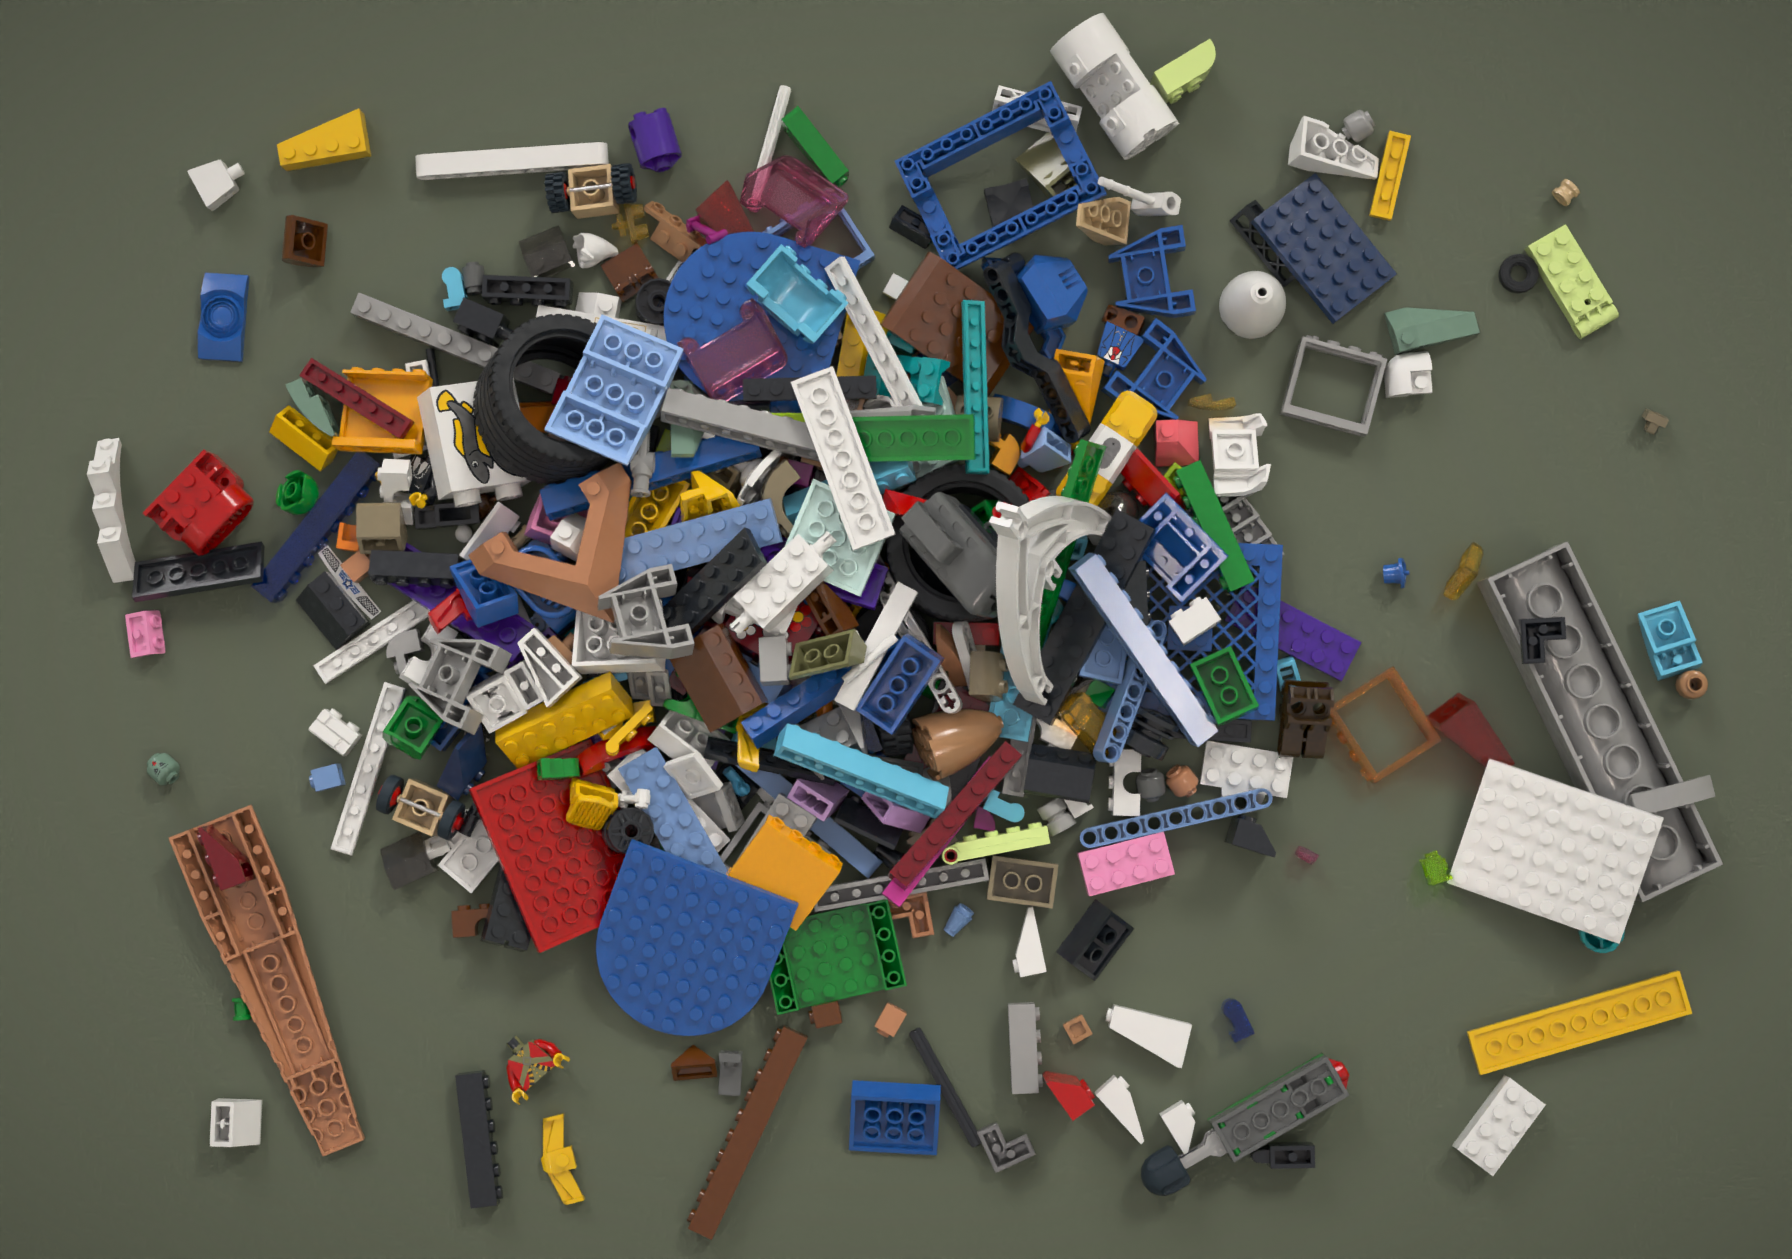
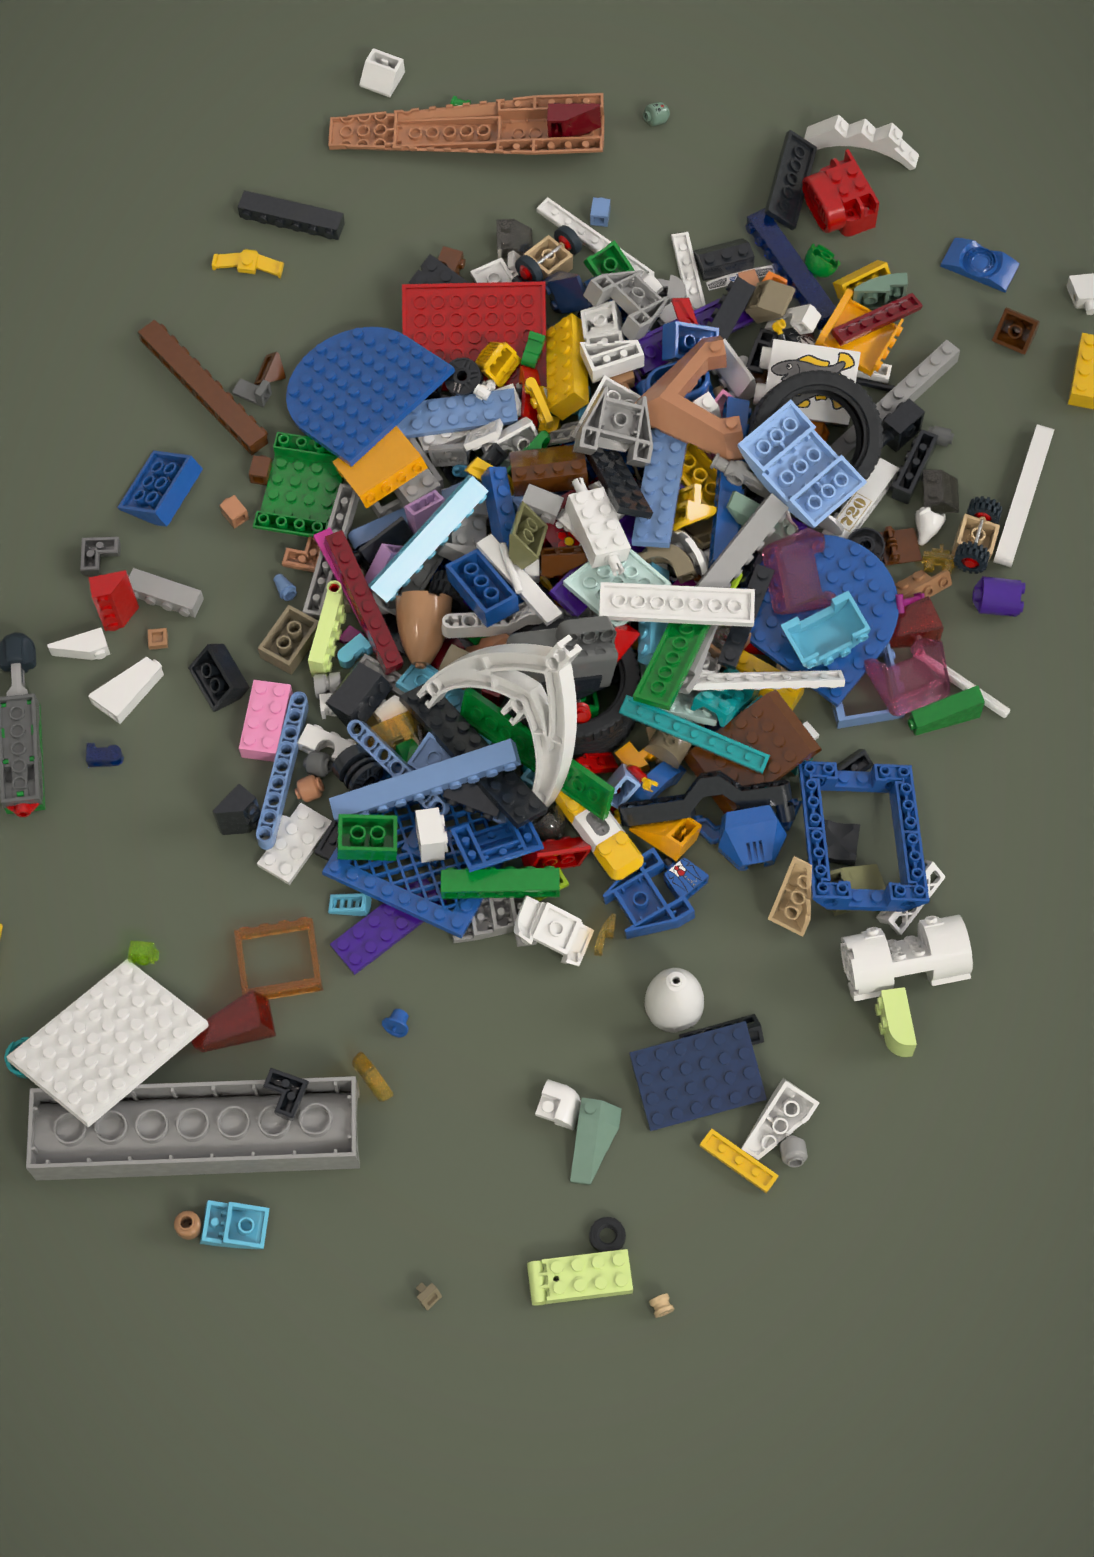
camera: 110 degrees right, 20 degrees down
(145, 633) = (760, 137): bright pink bracket -> none
(336, 732) = (631, 227): white brick -> none
(455, 287) = (939, 419): medium azure leg -> none
(530, 1064) = (326, 264): torso -> none
(599, 304) = (880, 514): white slope -> none
(946, 1087) = (169, 531): black axle -> none
(1029, 952) = (235, 627): white slope -> none
(1124, 319) = (704, 893): reddish brown leg -> none
(1146, 203) = (798, 949): white piece -> none
(1147, 275) = (734, 923): blue wedge -> none
(1175, 442) = (585, 894): coral slope -> none
(1180, 1123) = (46, 681): white slope -> none
(1302, 728) = (313, 897): dark brown connector -> none
(1306, 855) = (203, 859): clear pink tile -> none
(1351, 353) = (551, 1018): light grey window -> none
(1674, 795) = (101, 1153): light grey slope -> none

